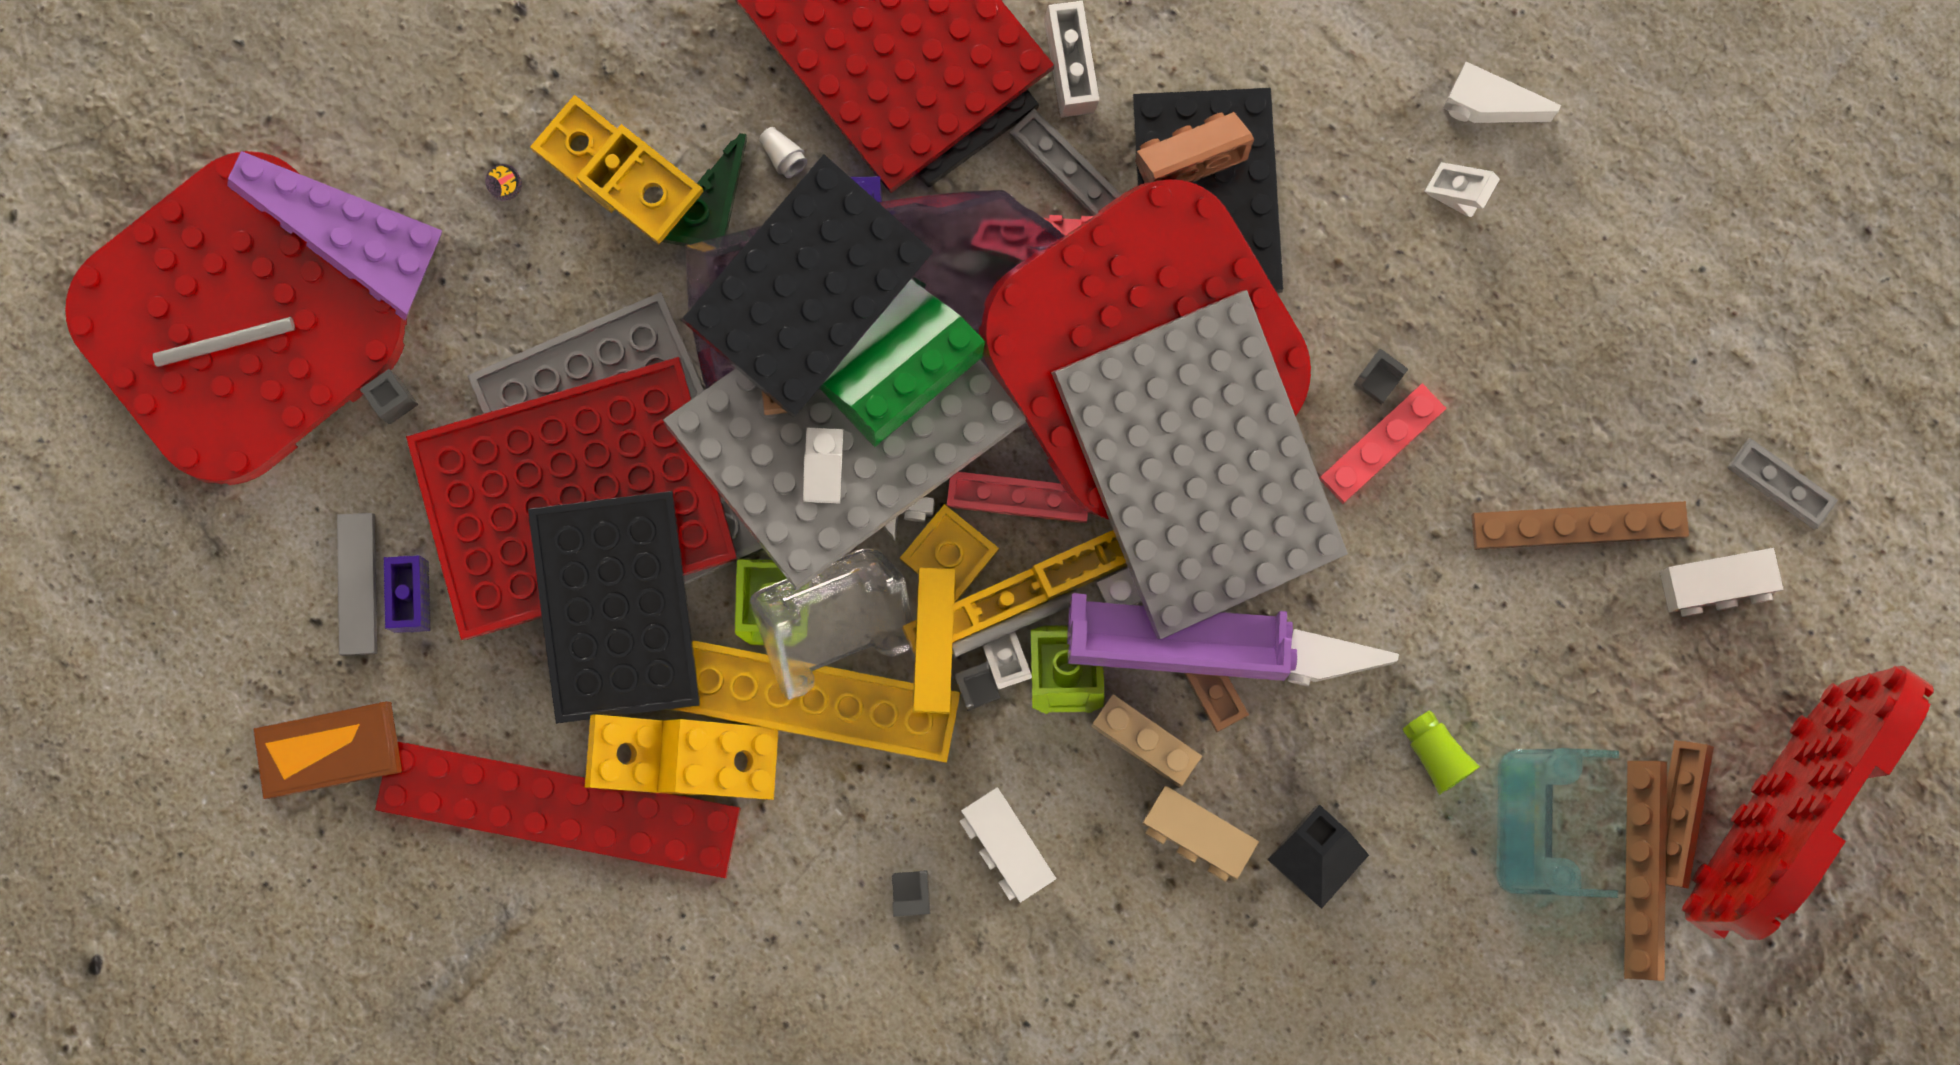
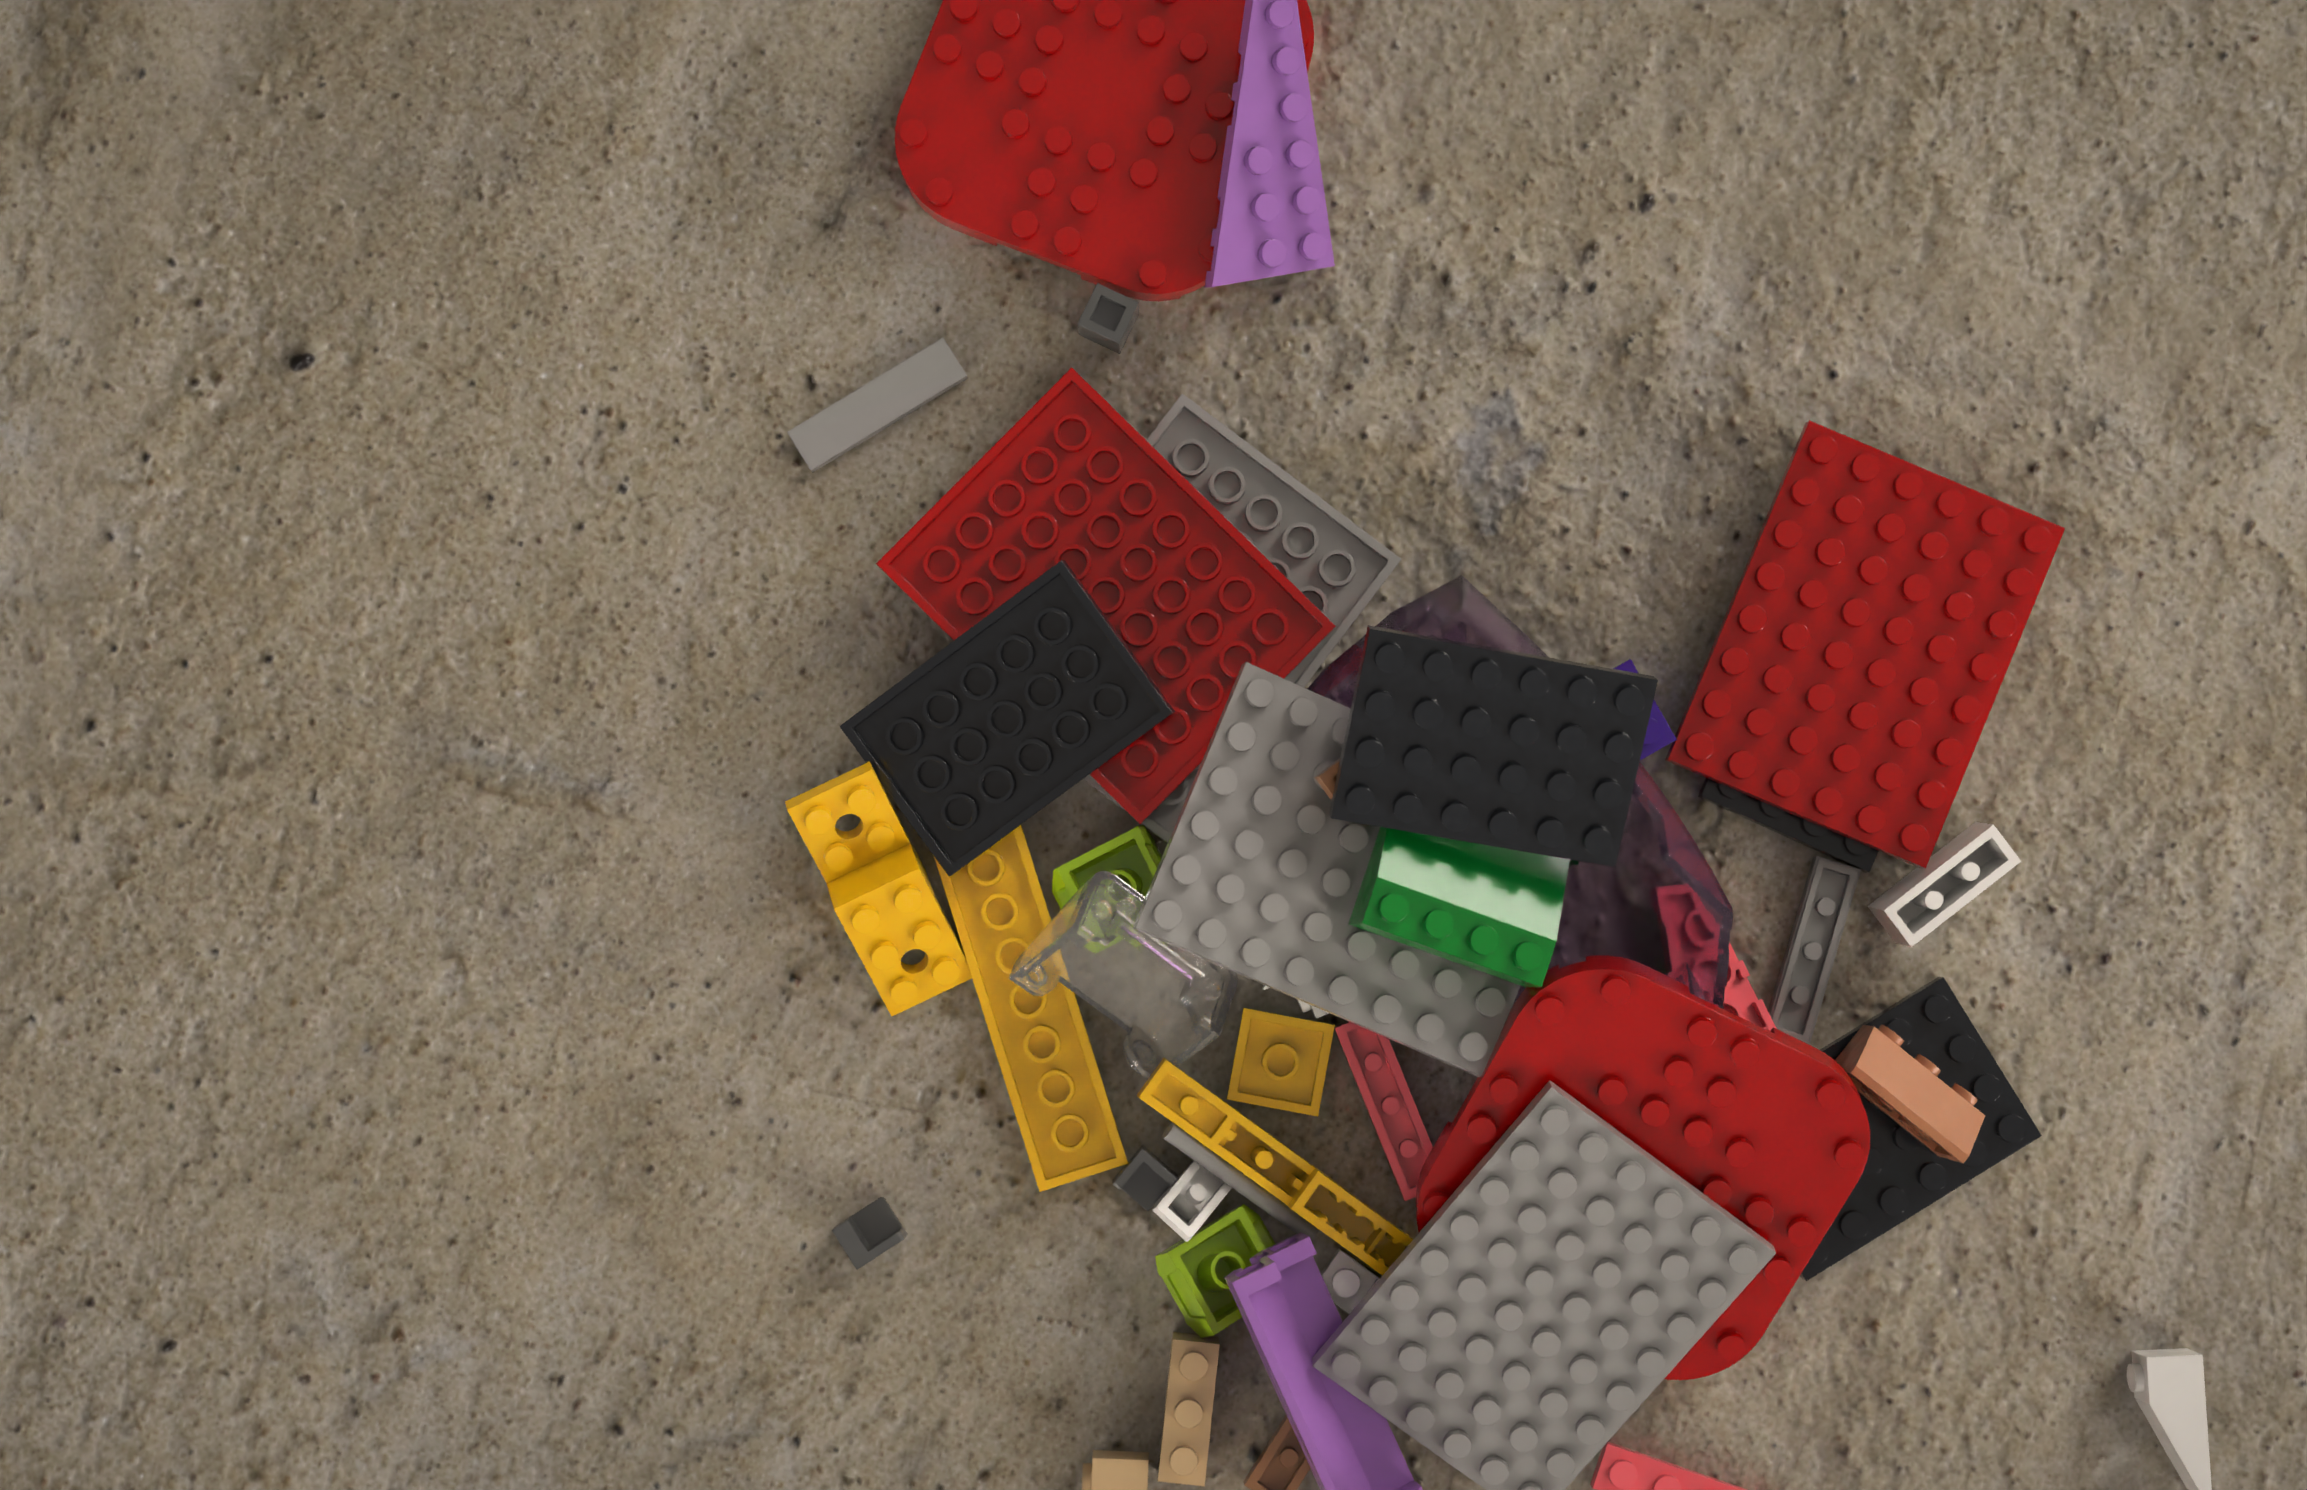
camera: 55 degrees right, 5 degrees up
(223, 341) = (1066, 96): light grey bar -> none
(327, 750) = (673, 483): dark orange tile -> none
(406, 594) = (894, 470): dark purple brick -> none
(503, 182) = (1430, 302): tile -> none
(560, 810) = (747, 776): red plate -> none
(617, 169) = (1516, 428): yellow bracket -> none
(712, 210) = (1525, 557): dark green wing -> none
(783, 153) = (1644, 606): white cone -> none
(823, 465) = (1293, 879): white slope -> none
(933, 640) = (1167, 1105): yellow tile -> none
(1006, 846) = (982, 1313): white brick -> none
(1380, 376) = (1765, 1451): dark grey panel -> none
(1462, 187) = (2047, 1429): white slope -> none

